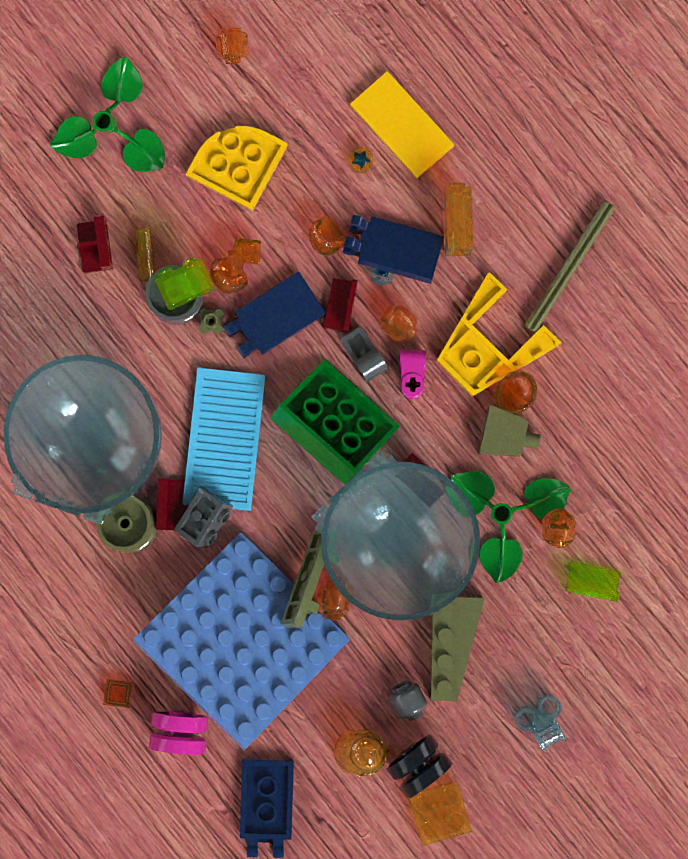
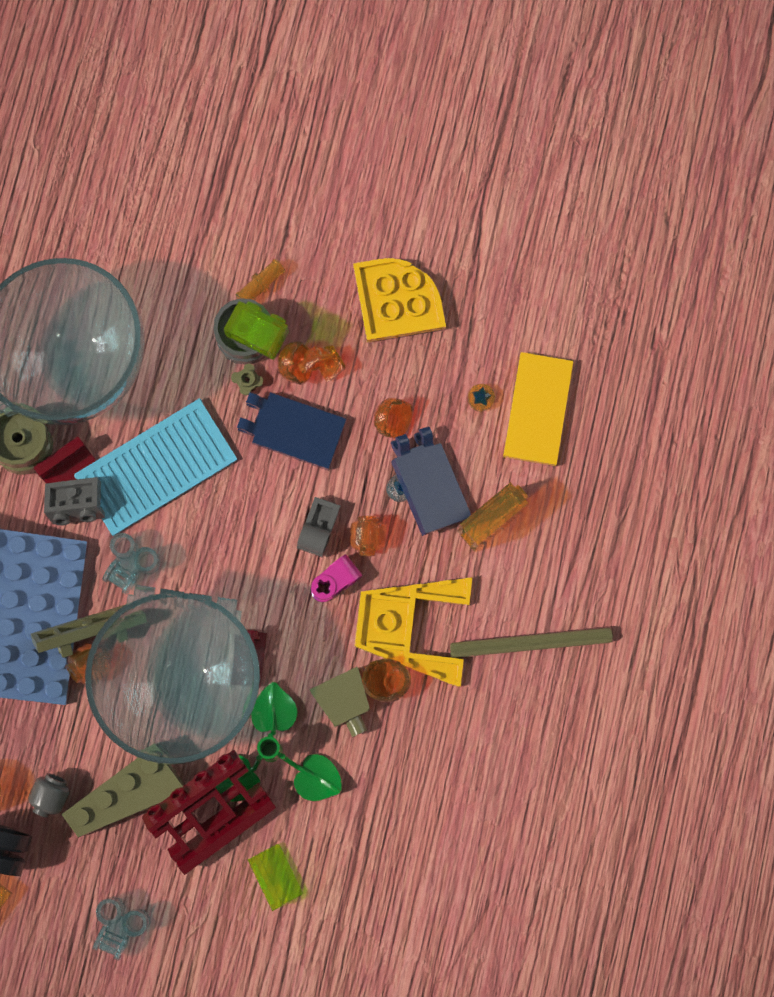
camera: 40 degrees right, 5 degrees down
(75, 134) = (315, 151): green plant -> none
(94, 245) = (236, 237): dark red panel -> none
(232, 45) = (491, 218): clear orange head -> none
(282, 515) = (128, 563): none -> clear light blue piece
(334, 421) = (242, 546): green slope -> none
(340, 305) = (345, 476): dark red panel -> none
(529, 593) = (219, 828): none -> dark red fence
(559, 528) = (297, 809): clear orange head -> none

